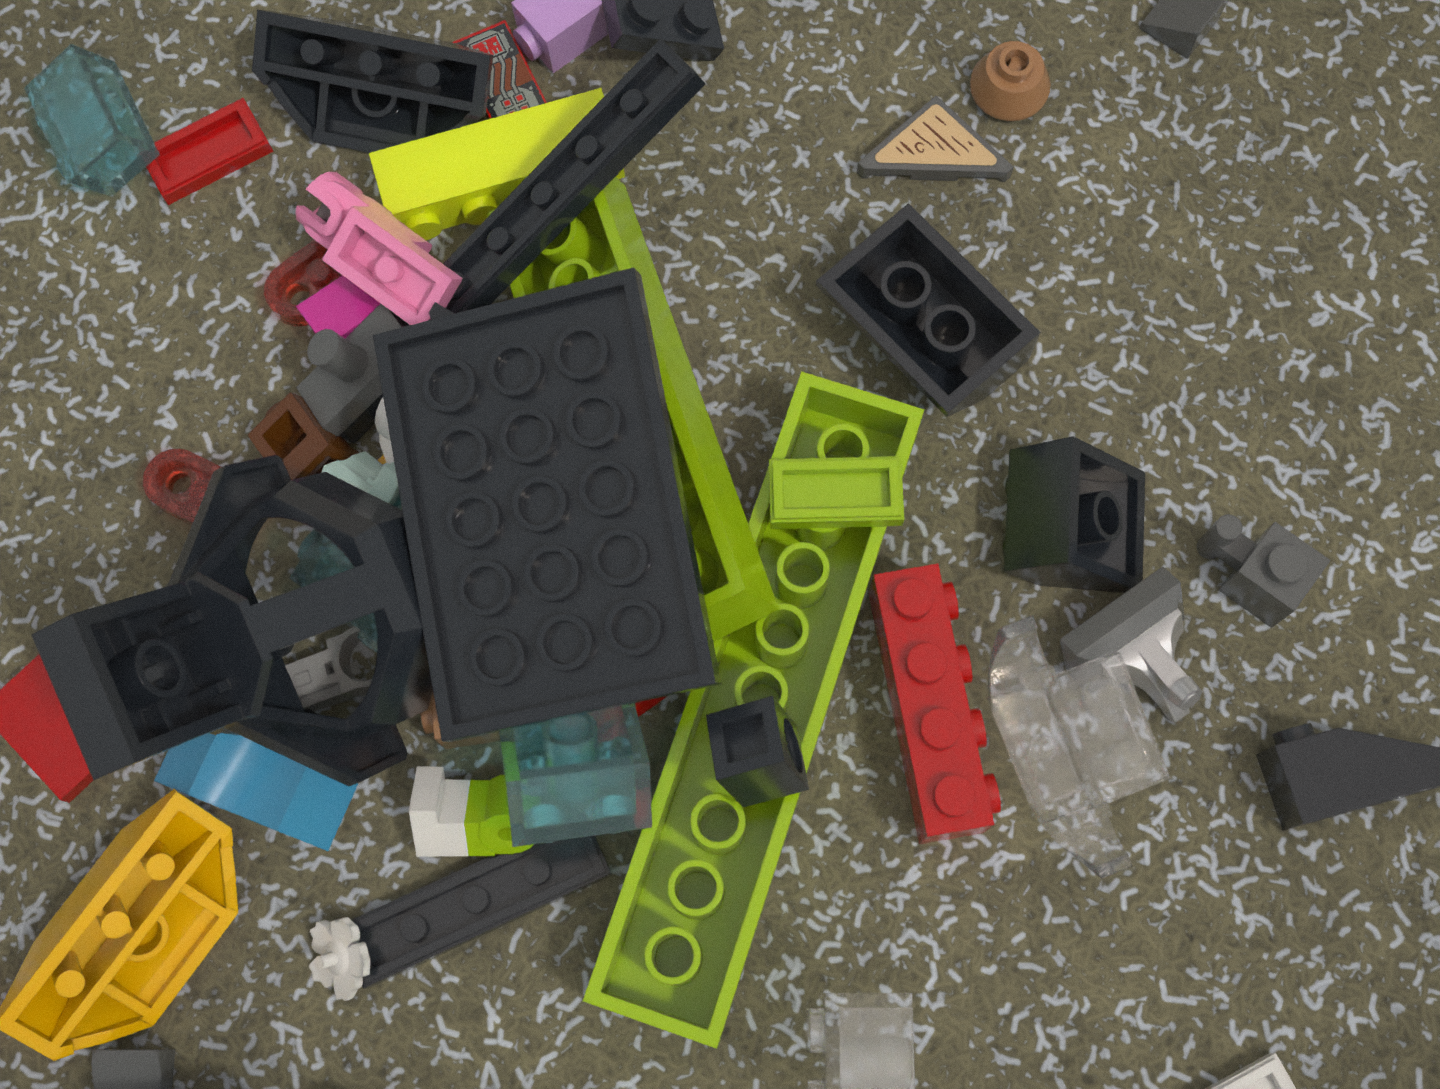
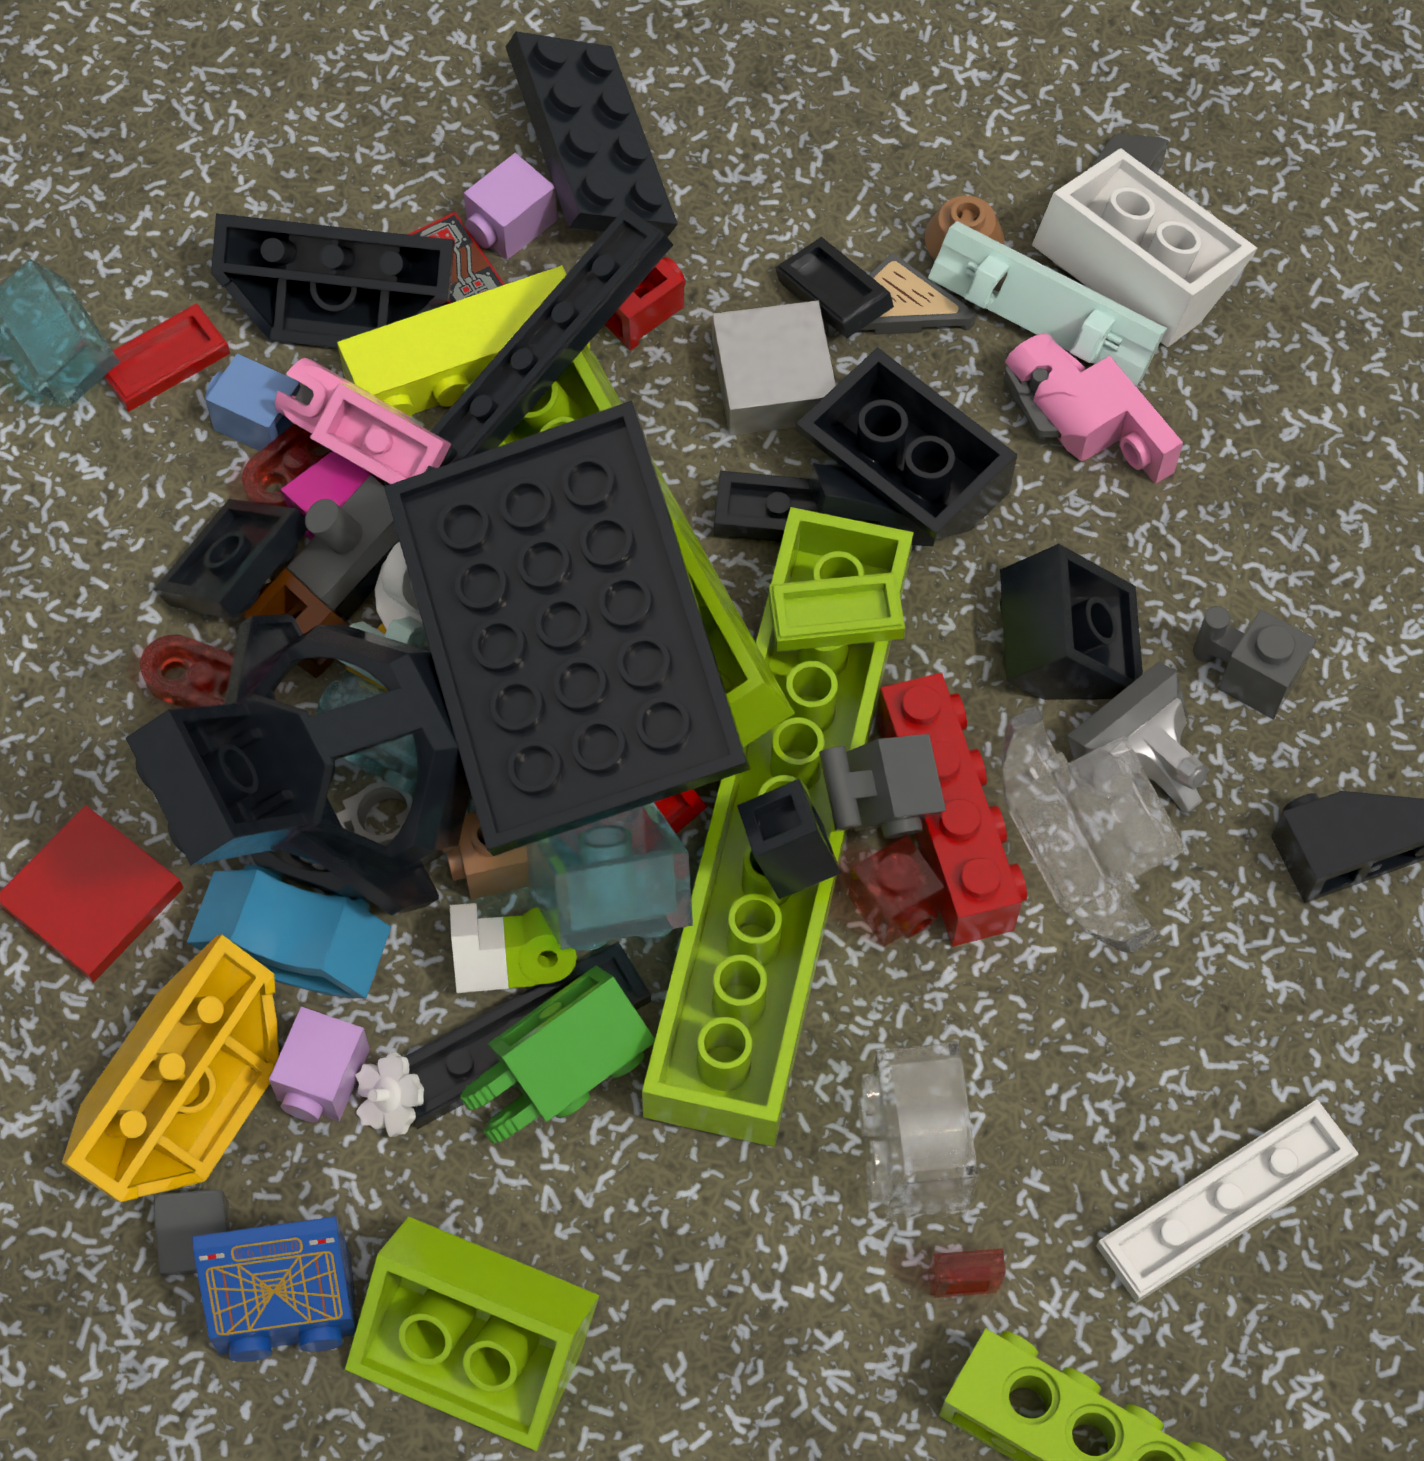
camera: 10 degrees left, 10 degrees down
(243, 375) = (233, 558): none -> black plate
(269, 206) = (244, 402): none -> medium blue brick
(271, 923) = (318, 1066): none -> lavender brick
(509, 938) = (561, 1054): none -> bright green hinge
(699, 128) = (649, 304): none -> red brick
(774, 355) = (758, 504): none -> black plate
(803, 208) = (771, 365): none -> flat silver piece
(860, 364) = (845, 496): none -> black slope
(863, 692) = (883, 785): none -> dark grey brick
(869, 791) = (896, 891): none -> clear red brick
(874, 129) = (845, 292): none -> black tile
(1087, 163) = (1045, 301): none -> light aqua hinge
(1118, 278) = (1089, 407): none -> bright pink plate
(1191, 108) = (1142, 243): none -> white slope

